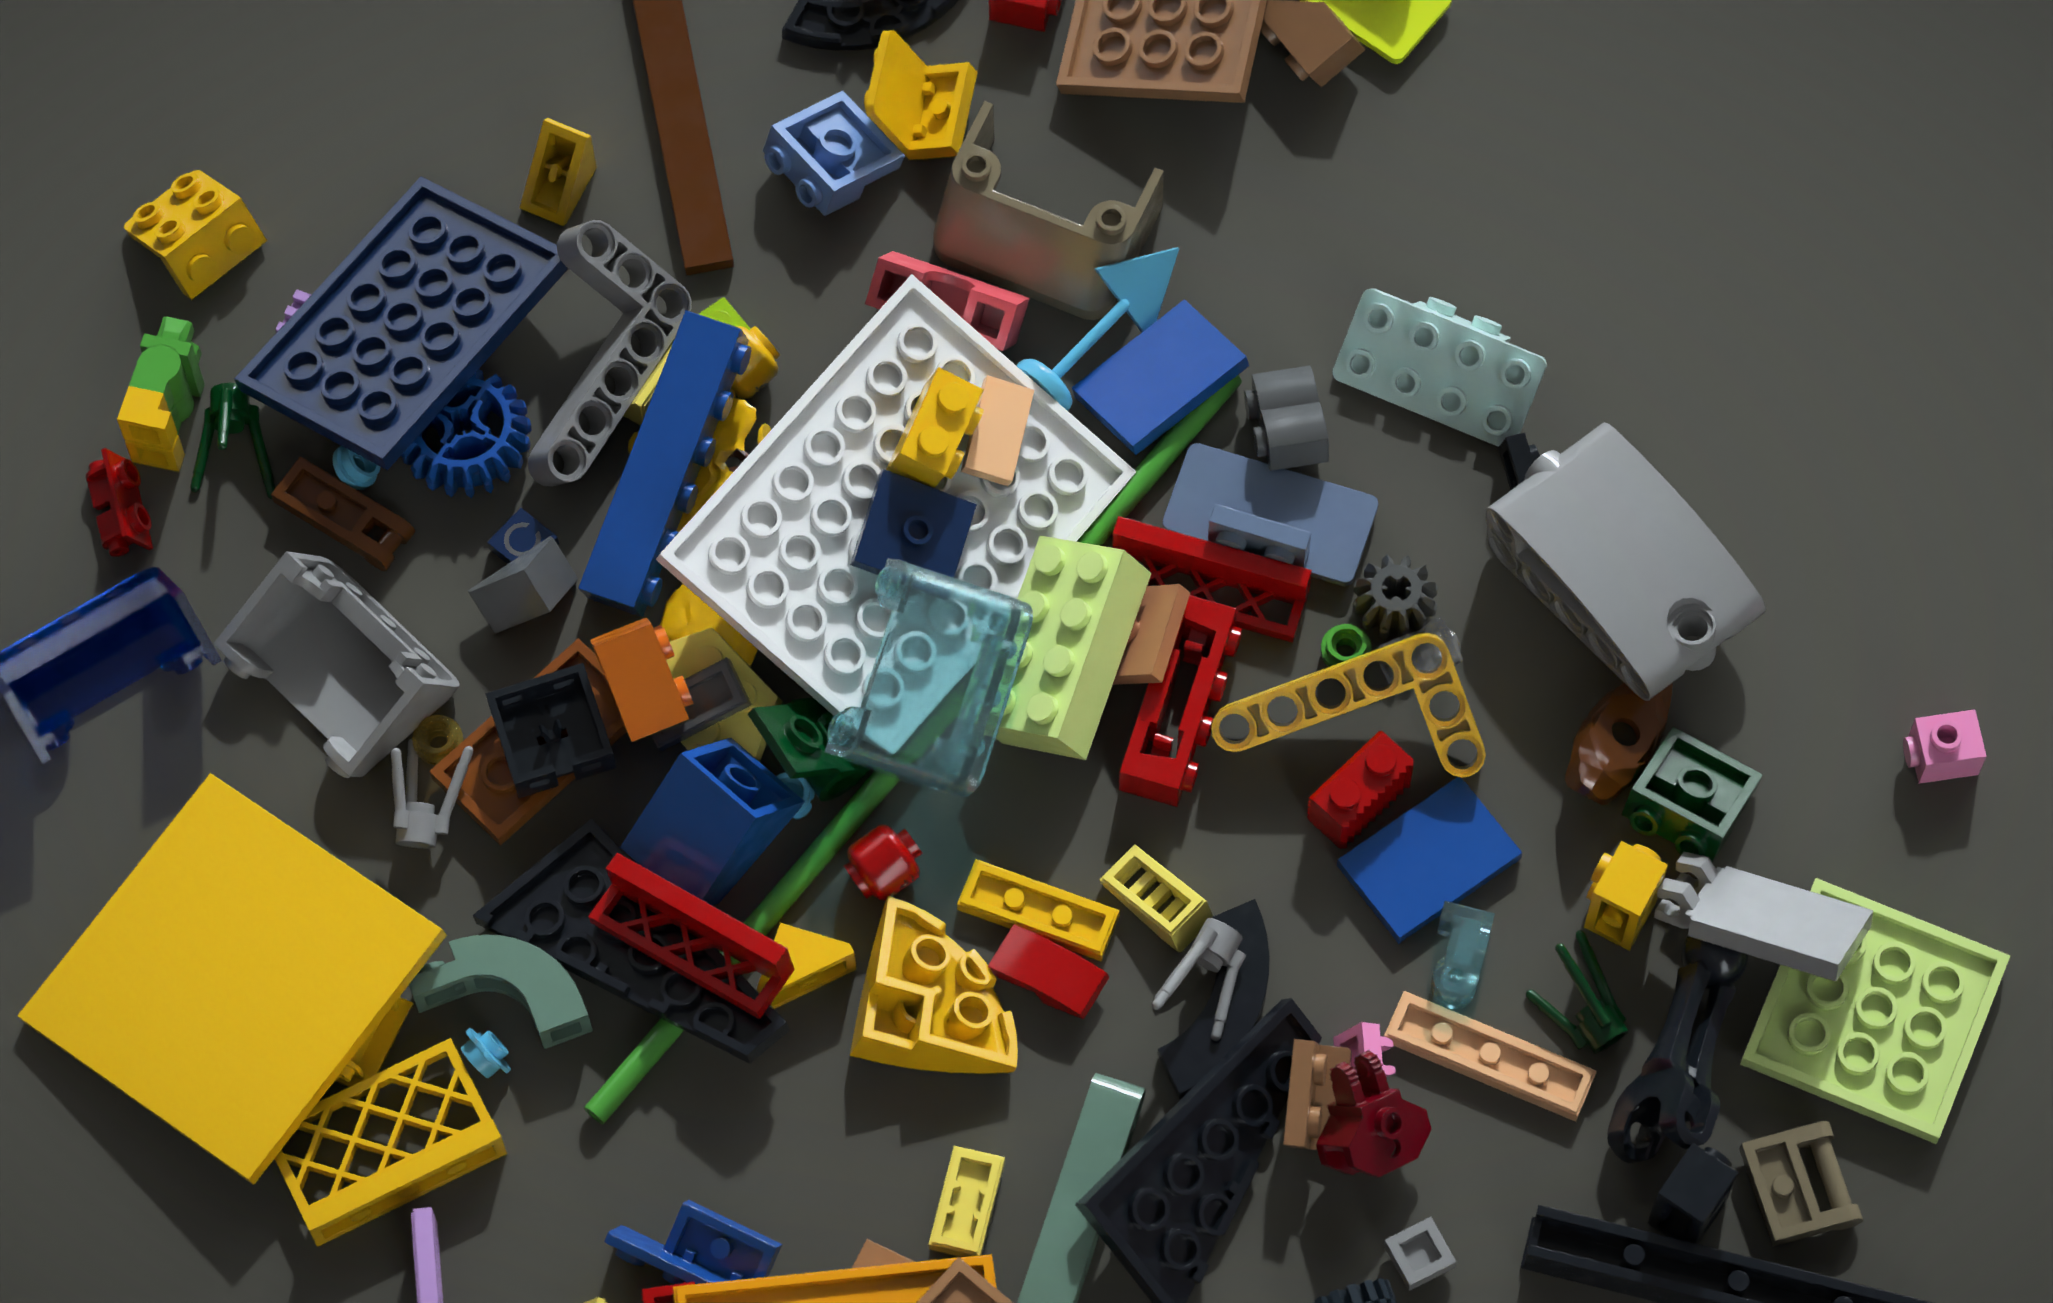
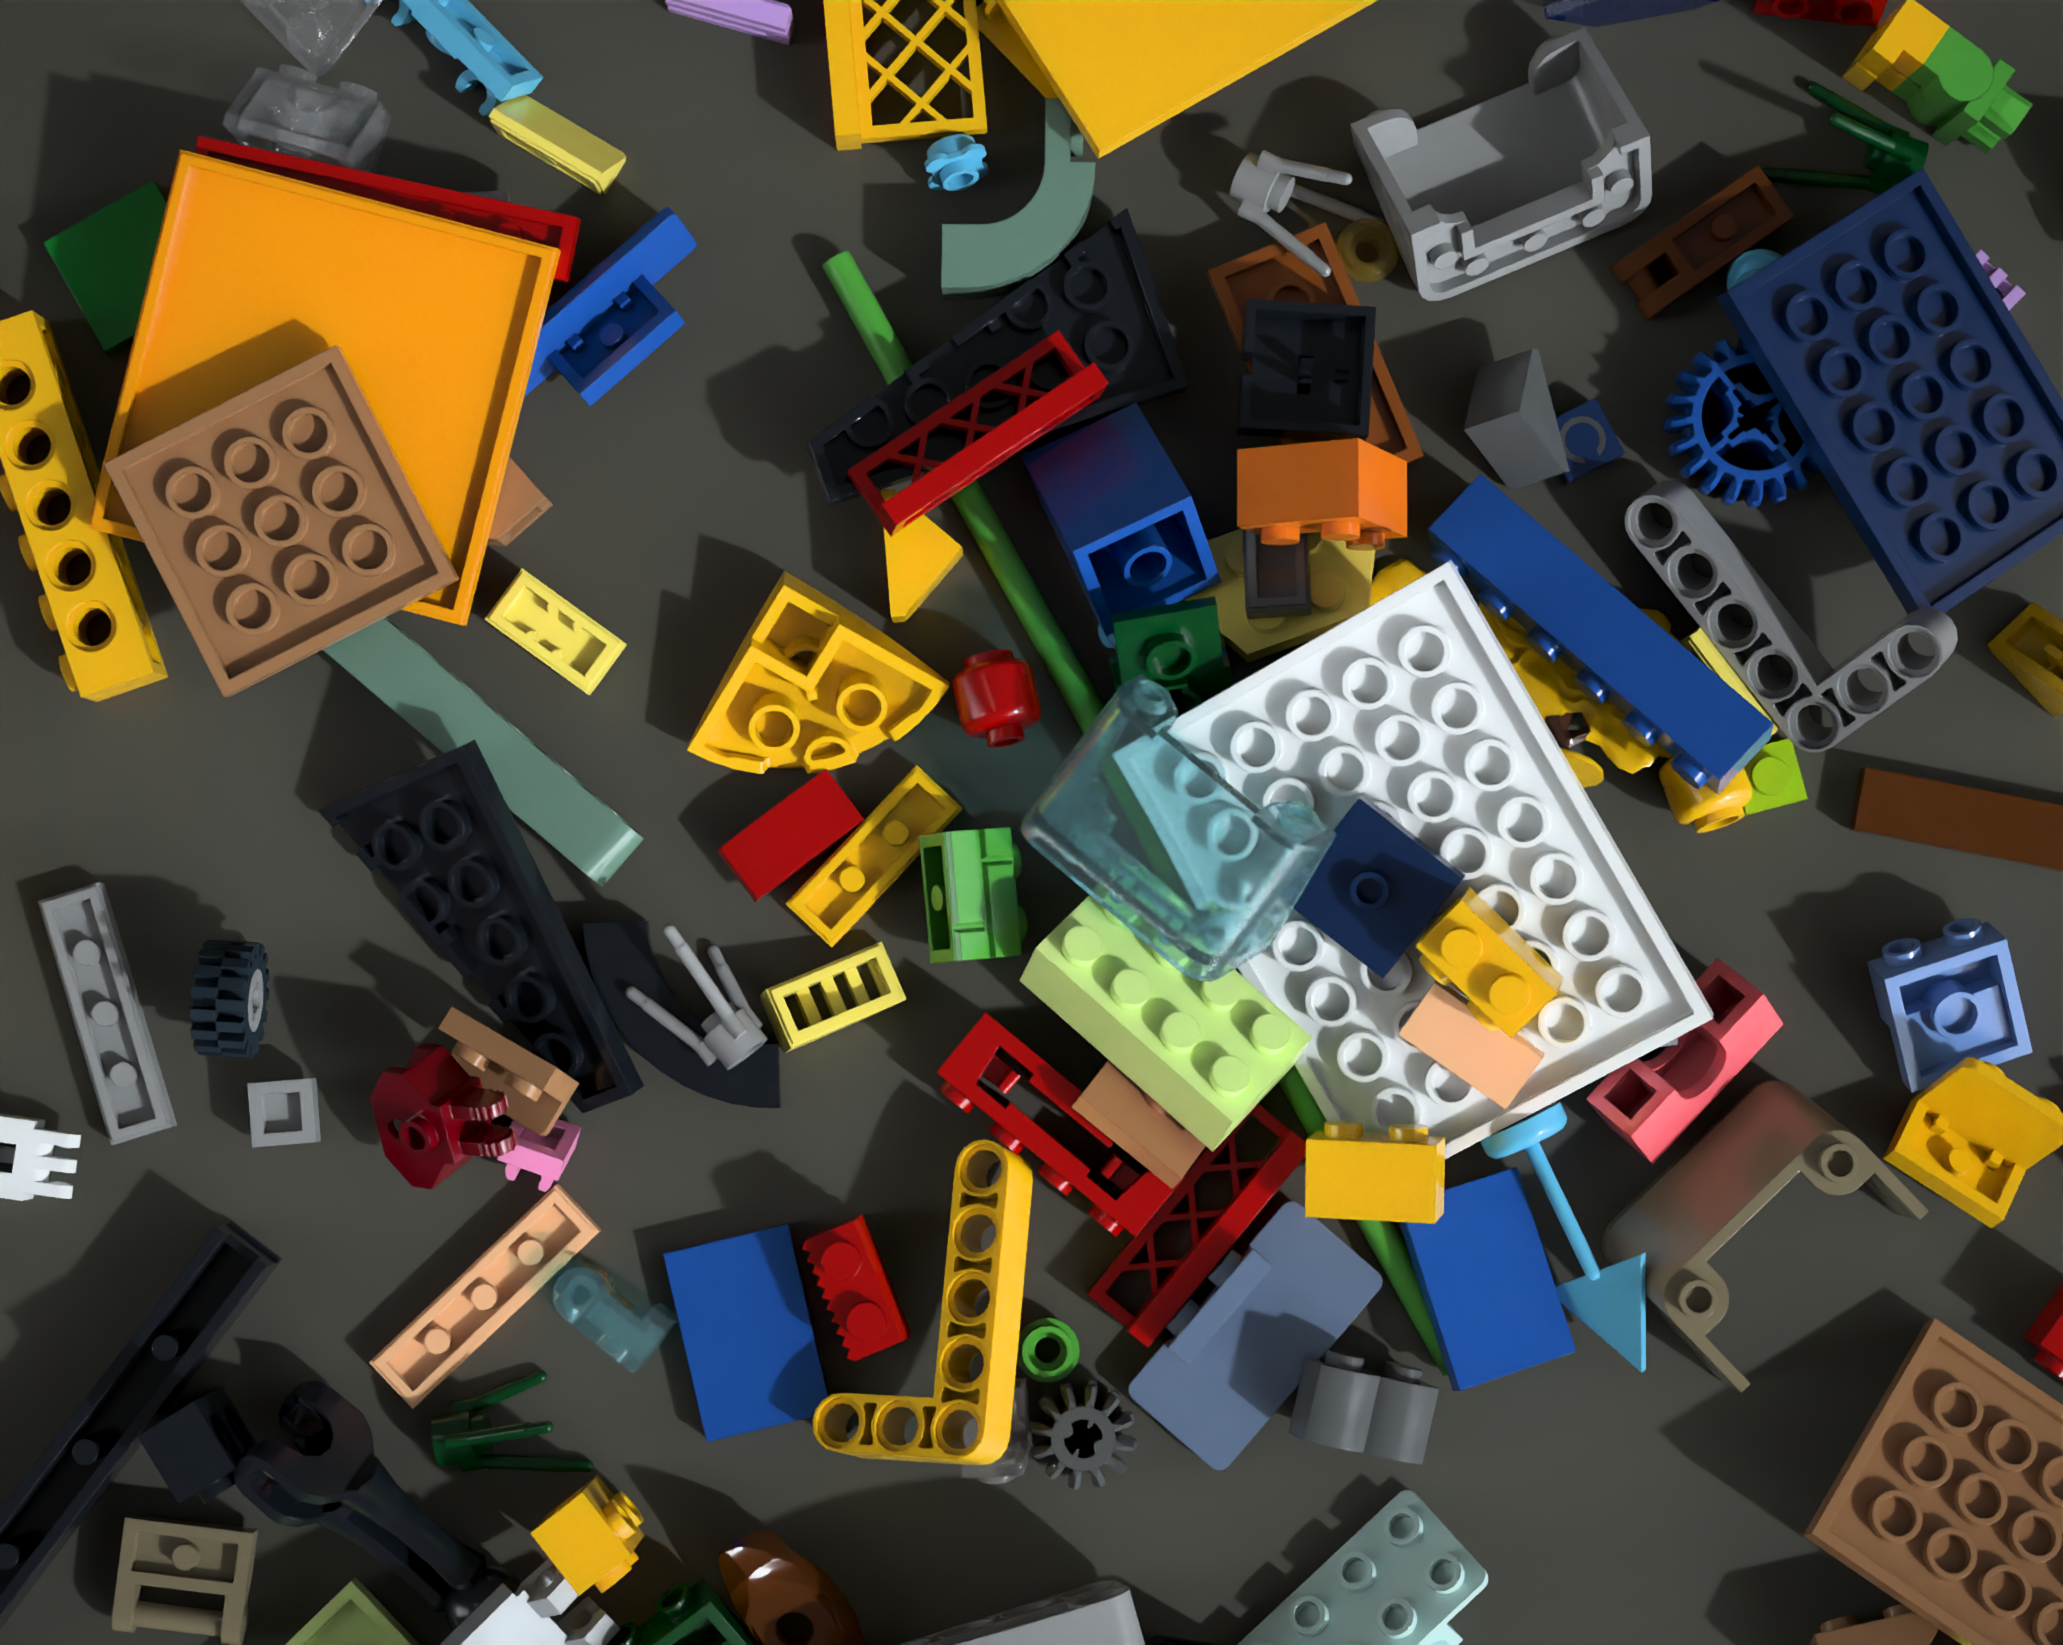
camera: 110 degrees right, 20 degrees up
(1038, 821) = (972, 895): none -> bright green brick
(1118, 461) = (1375, 1173): none -> yellow brick

